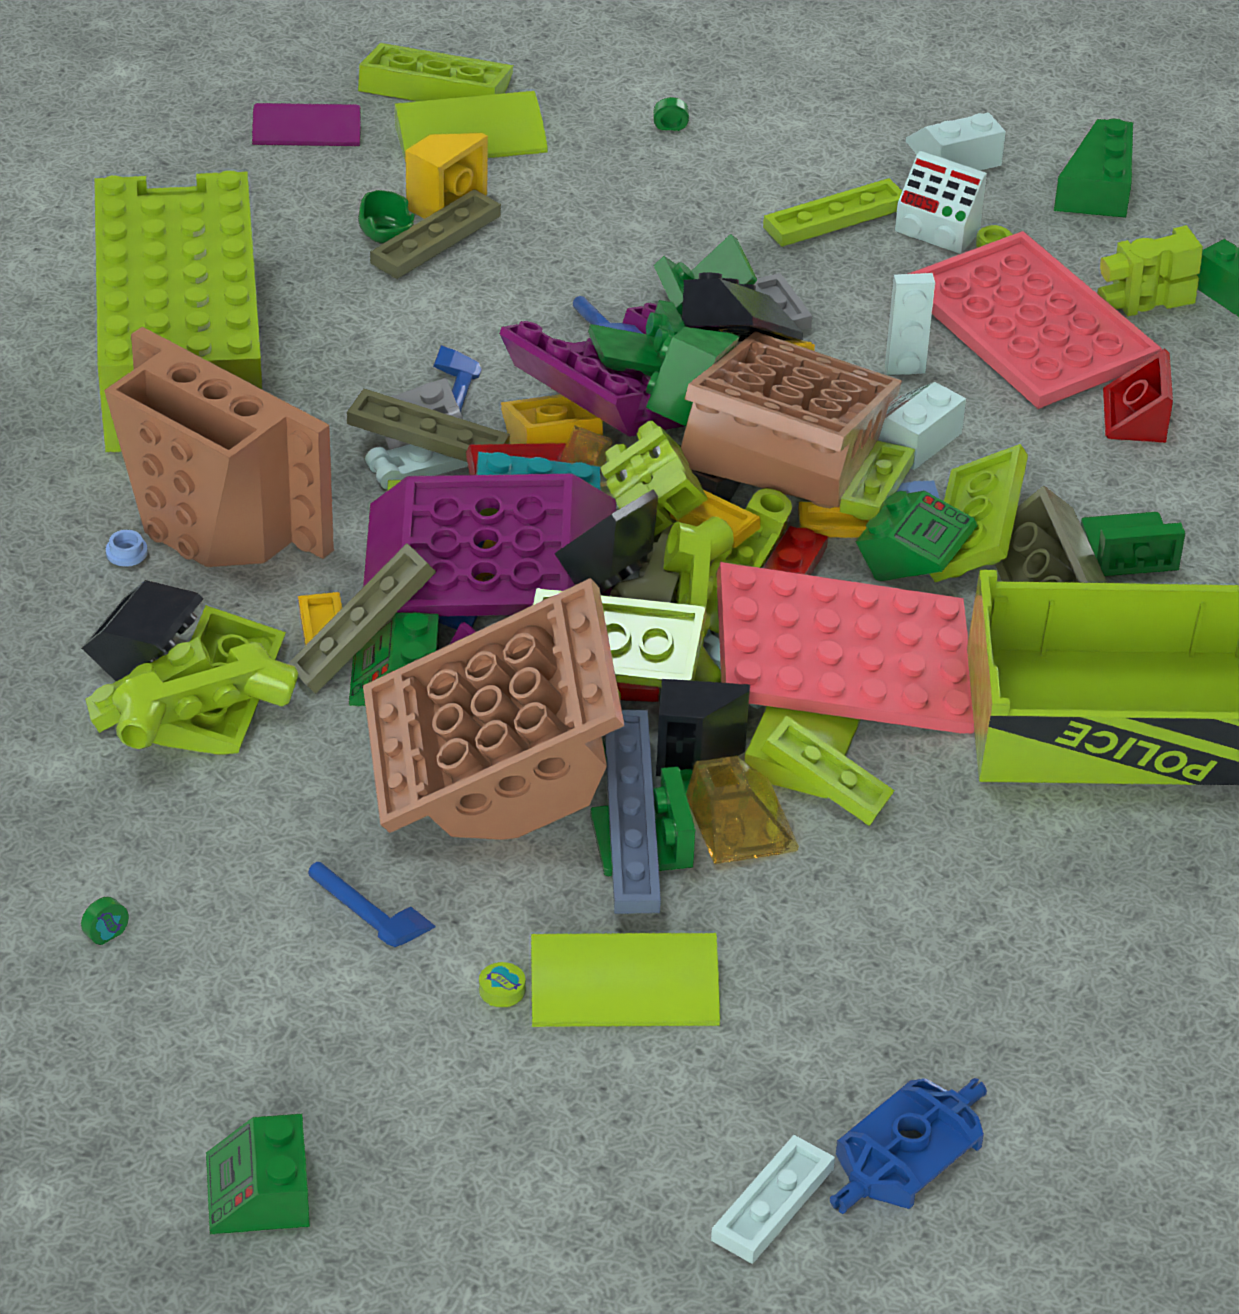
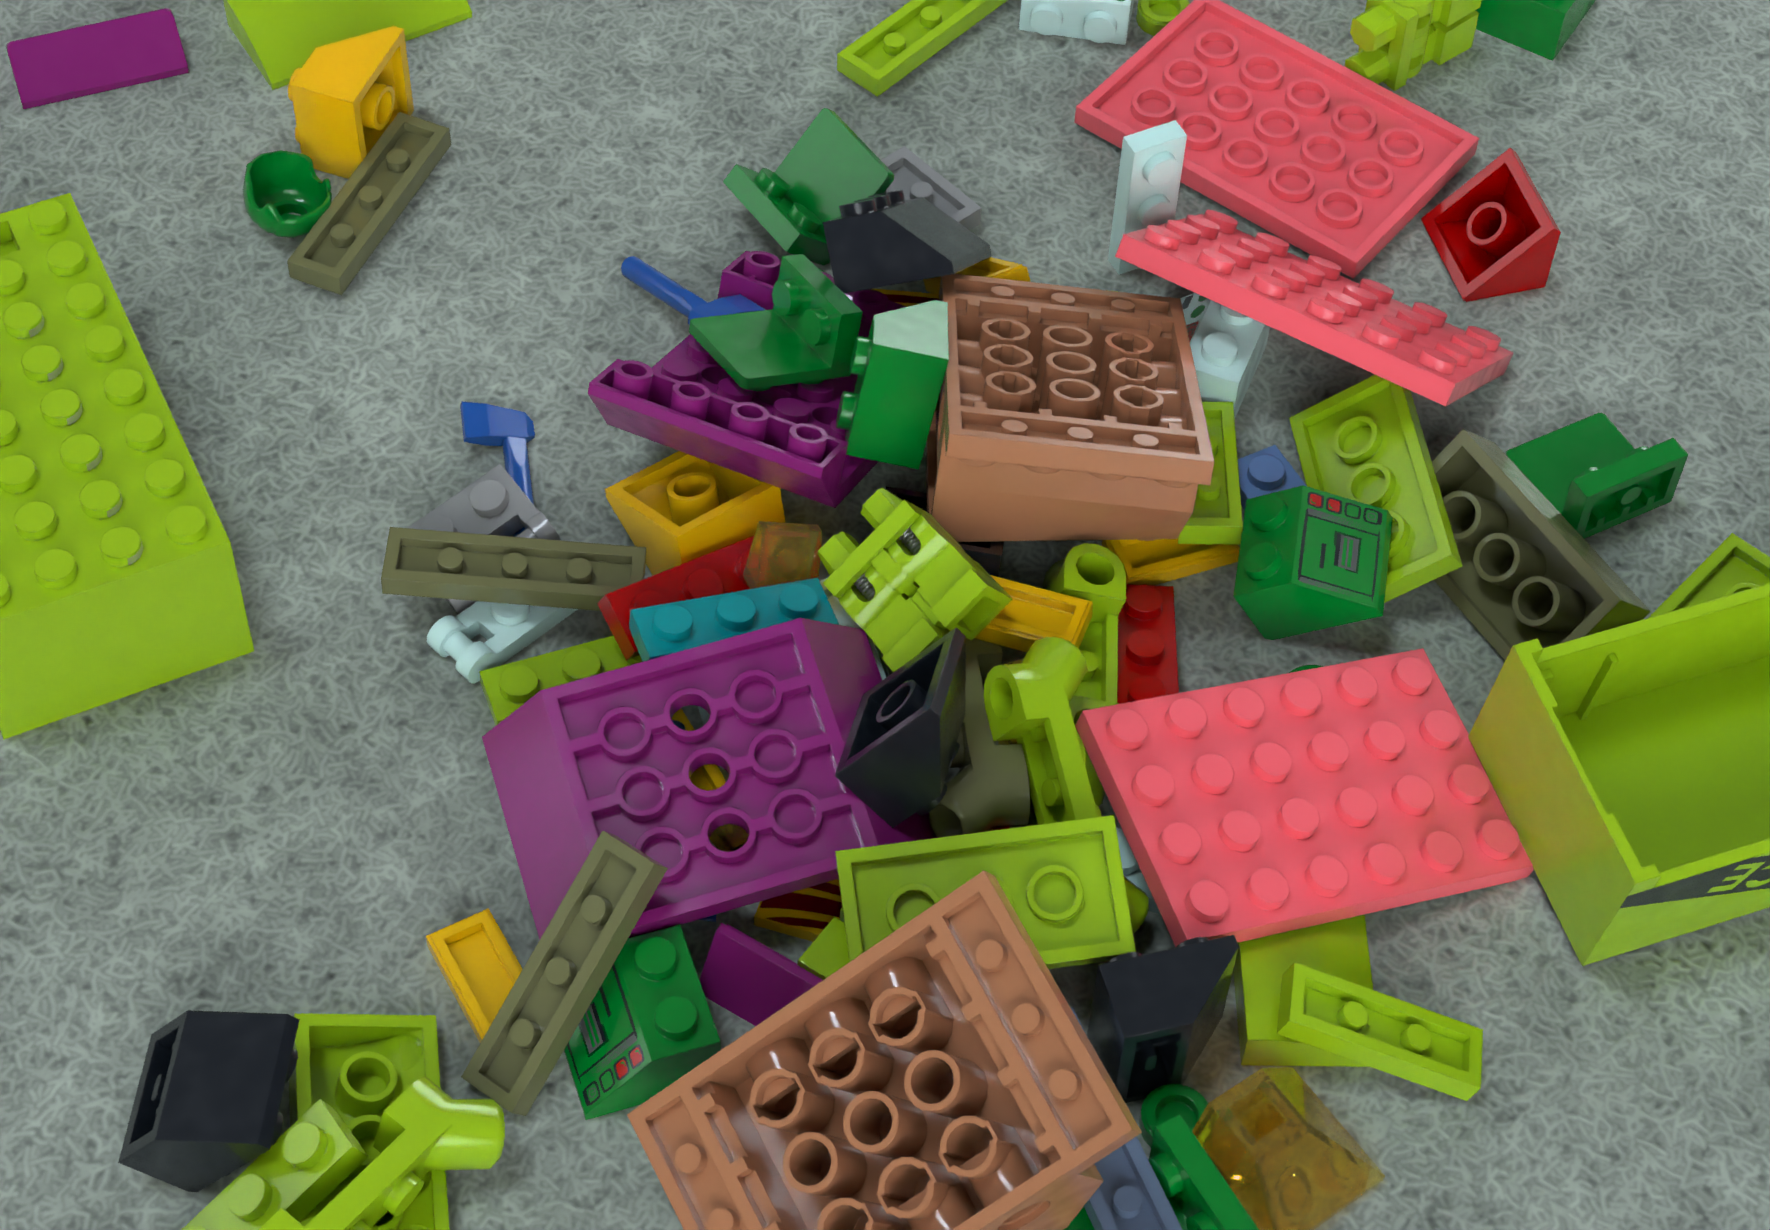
camera: 20 degrees left, 10 degrees up
(126, 548) = (108, 910): light blue plate -> none
(218, 460) = (220, 744): nougat wedge -> none
(991, 405) = (1319, 305): none -> coral plate

